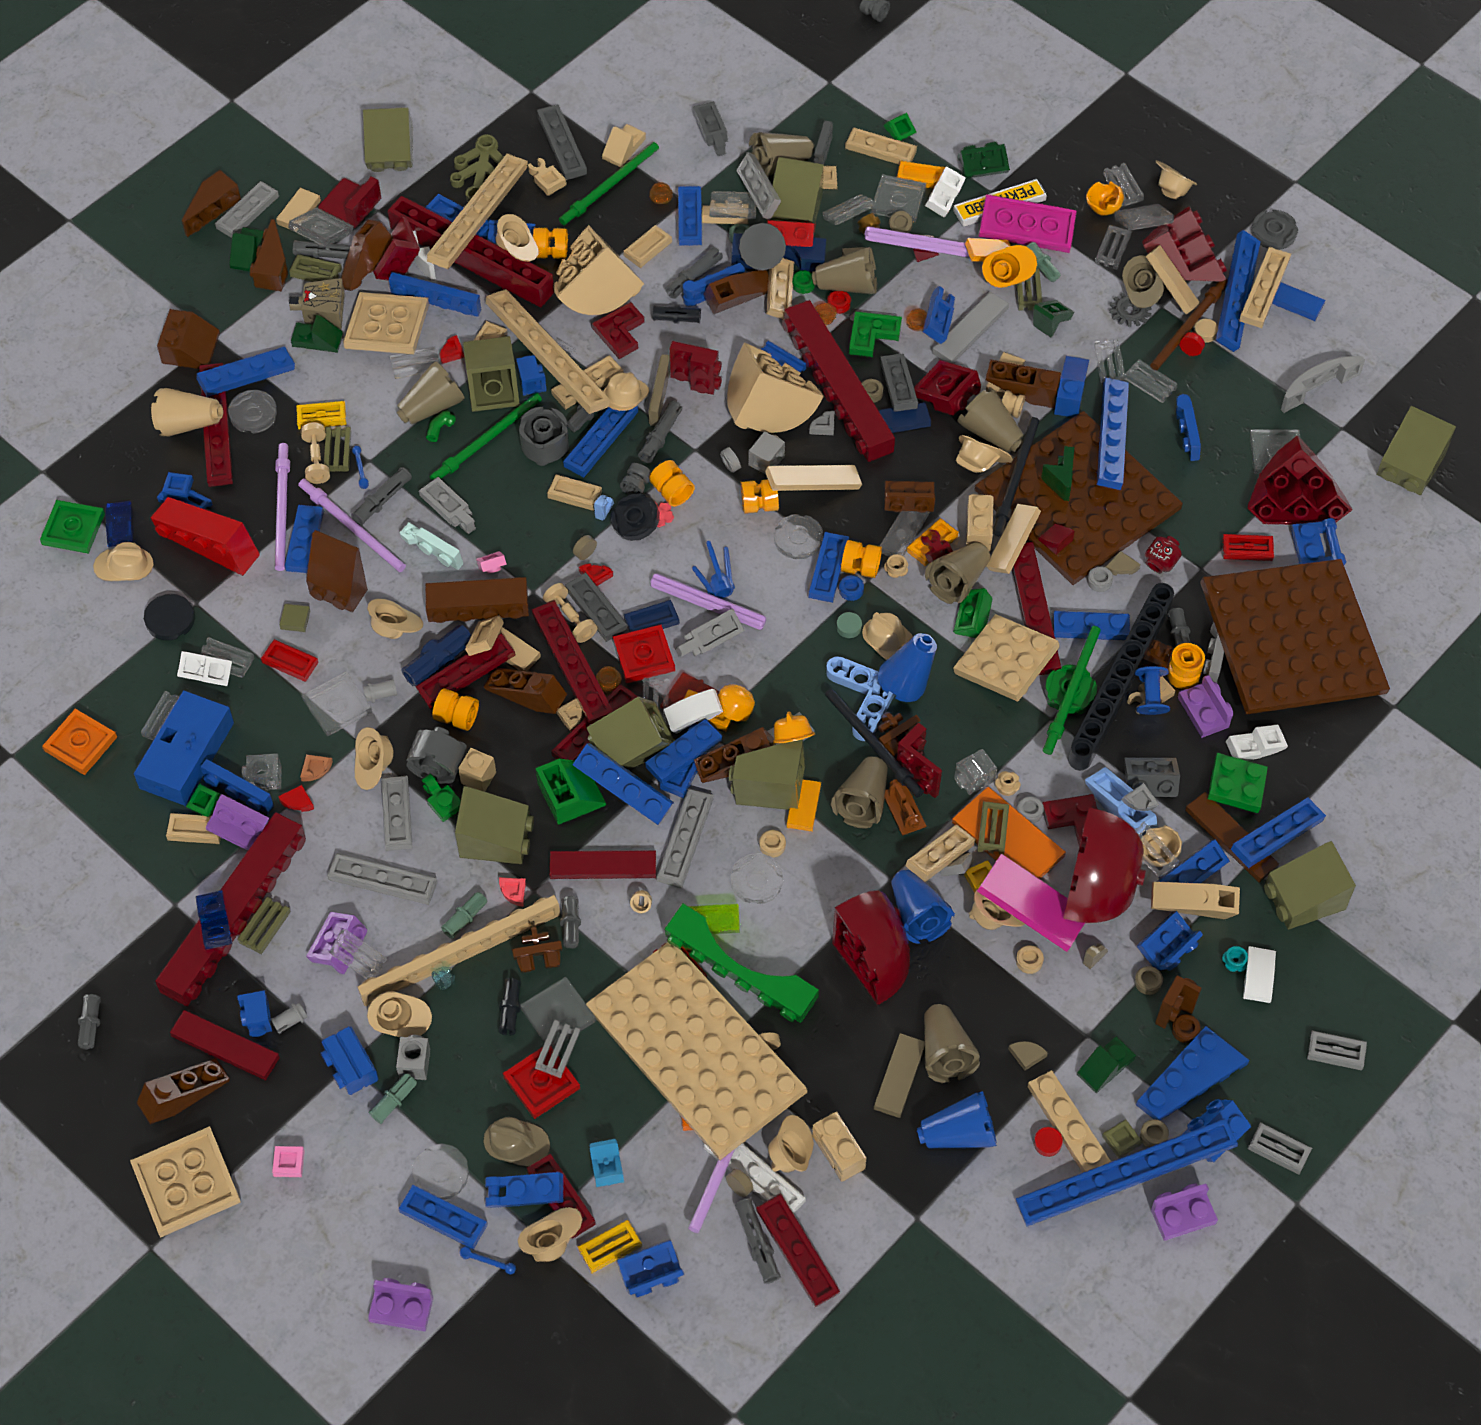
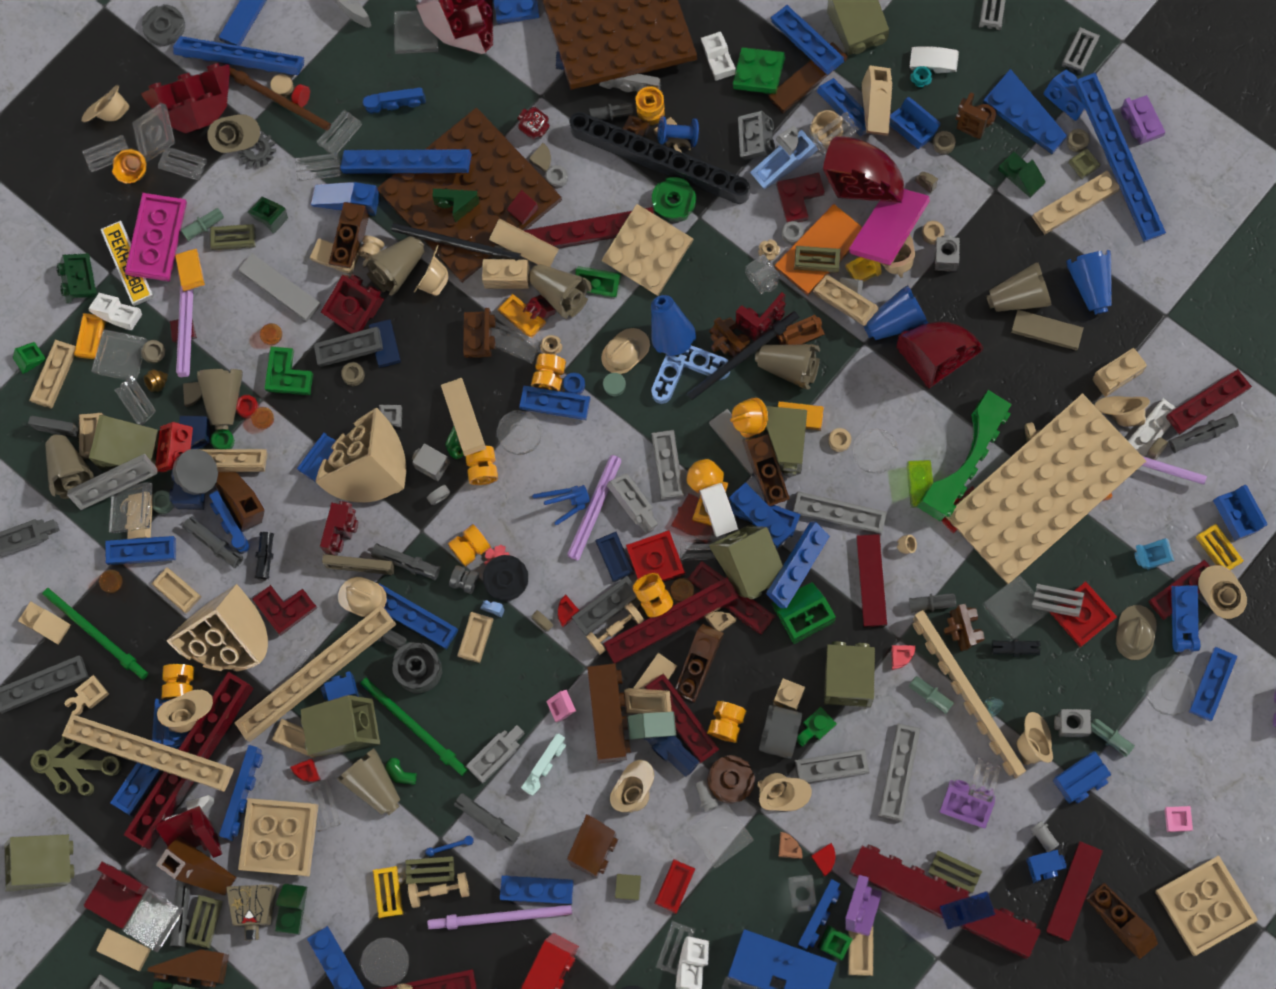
camera: 85 degrees left, 15 degrees up
(319, 497) = (488, 881): lavender bar -> none
(393, 712) = (731, 779): none -> reddish brown tile
(454, 632) = (651, 725): none -> sand green slope
(466, 1253) = (1248, 627): blue hinge -> none
(598, 644) = (653, 595): none -> light orange wheel
(599, 373) = (336, 626): tan tile -> none
(753, 672) = (667, 465): none -> light grey tile
(839, 381) = (343, 402): dark red brick -> none
(939, 315) = (269, 312): blue hinge -> none
(991, 975) = (946, 262): none -> light grey brick
(1009, 266) = (214, 249): light orange piece -> none
(1027, 1053) = (1019, 233): dark tan tile -> none
(1048, 1141) = (1093, 217): red tile -> none
(1056, 728) = (719, 208): green bar -> none
(1078, 625) = (605, 183): blue plate -> none
(1172, 279) = (233, 106): tan tile -> none
(1206, 707) = (685, 93): medium lavender bracket -> none
(1248, 550) = (519, 73): red tile -> none
(1265, 287) = (239, 30): tan plate -> none

